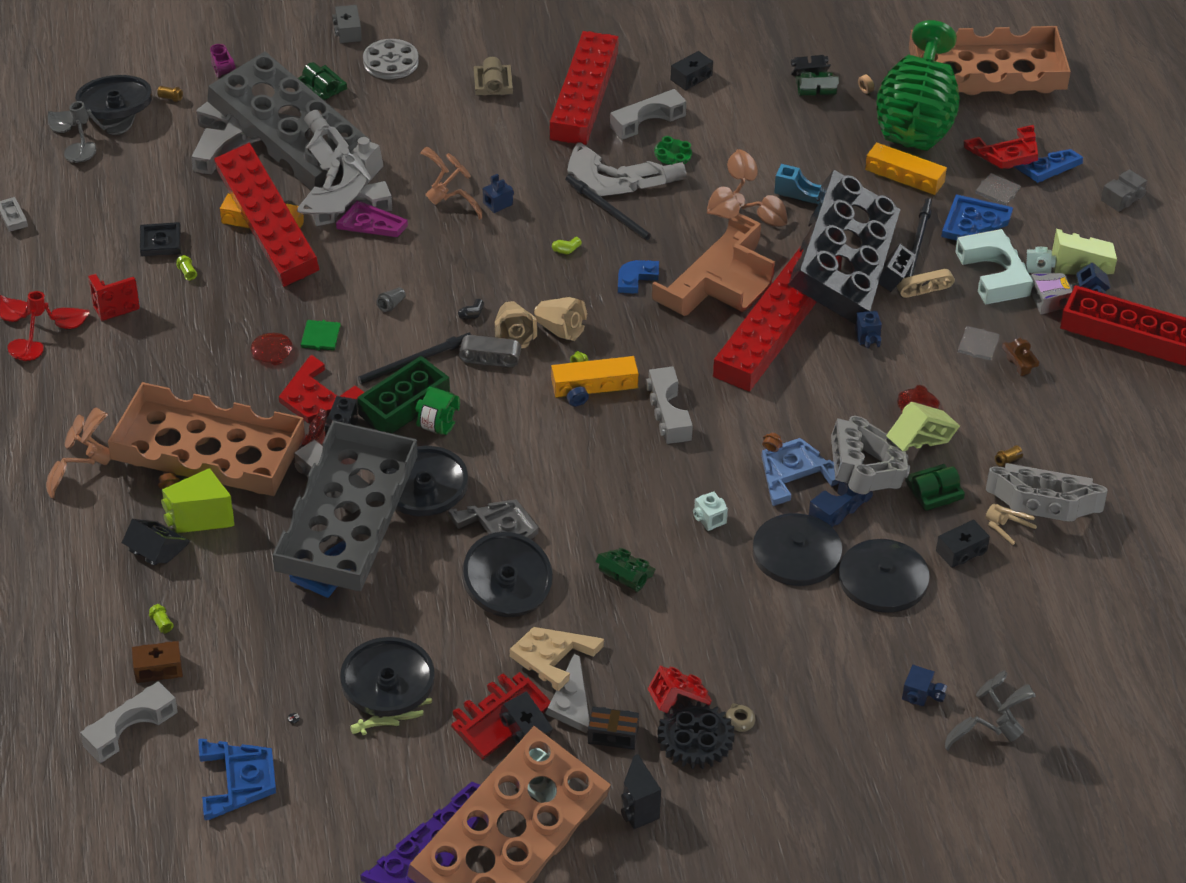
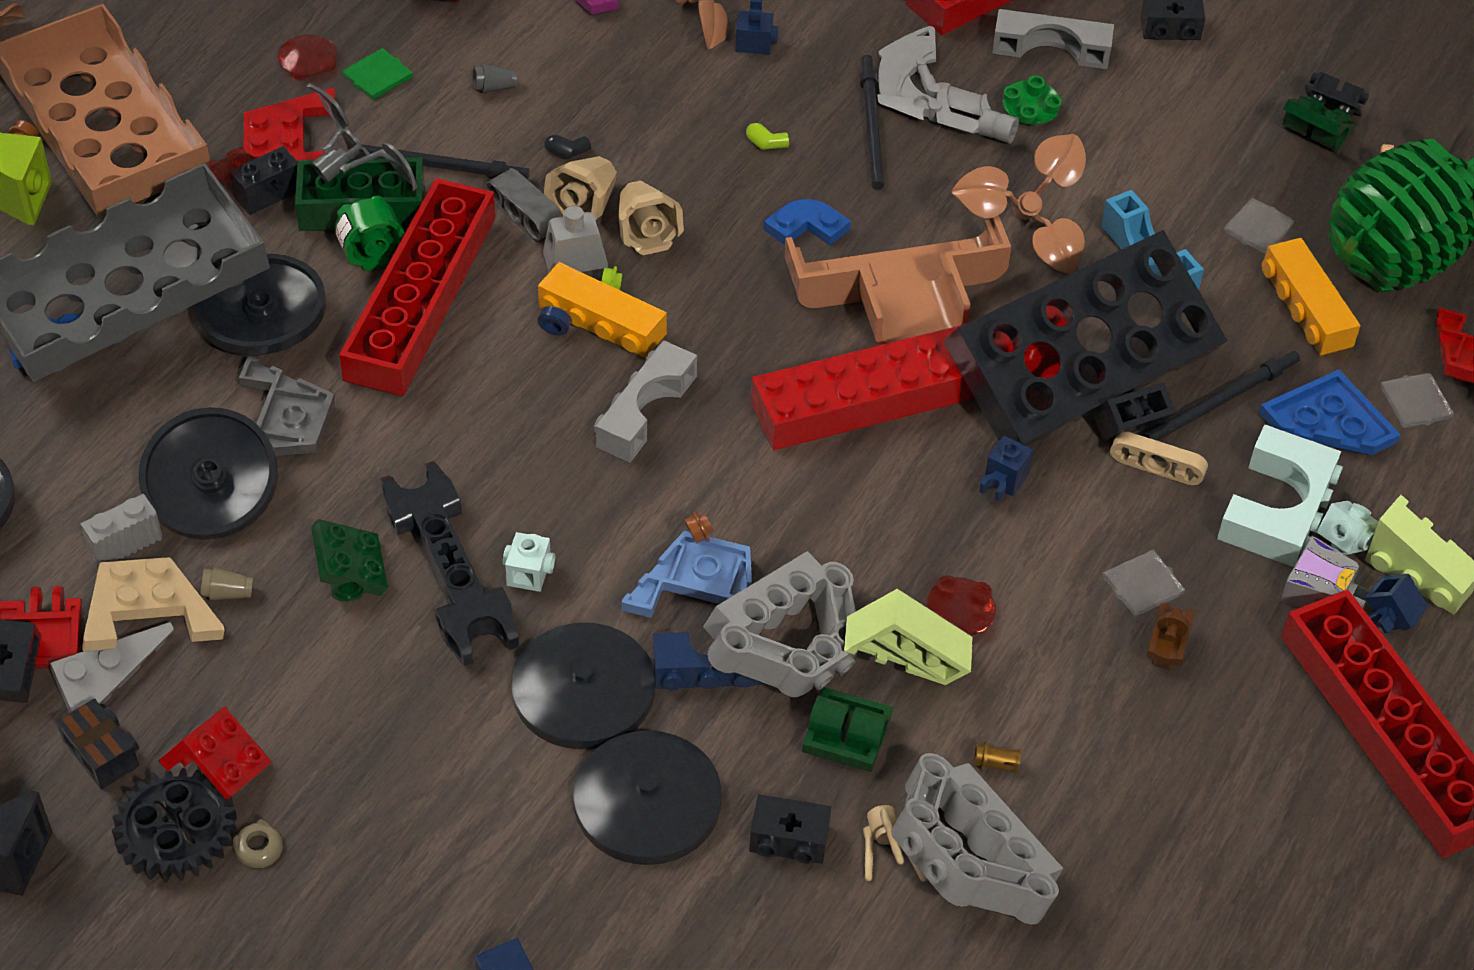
camera: 40 degrees right, 5 degrees up
(374, 375) = (336, 160): none -> dark grey plant
(495, 422) = (418, 287): none -> red brick
(496, 630) = (121, 530): none -> light grey brick
(543, 352) = (574, 241): none -> light grey torso
(577, 620) = (225, 584): none -> dark tan cone
(707, 550) = (469, 608): none -> black piece
(842, 150) = (1259, 225): none -> clear piece

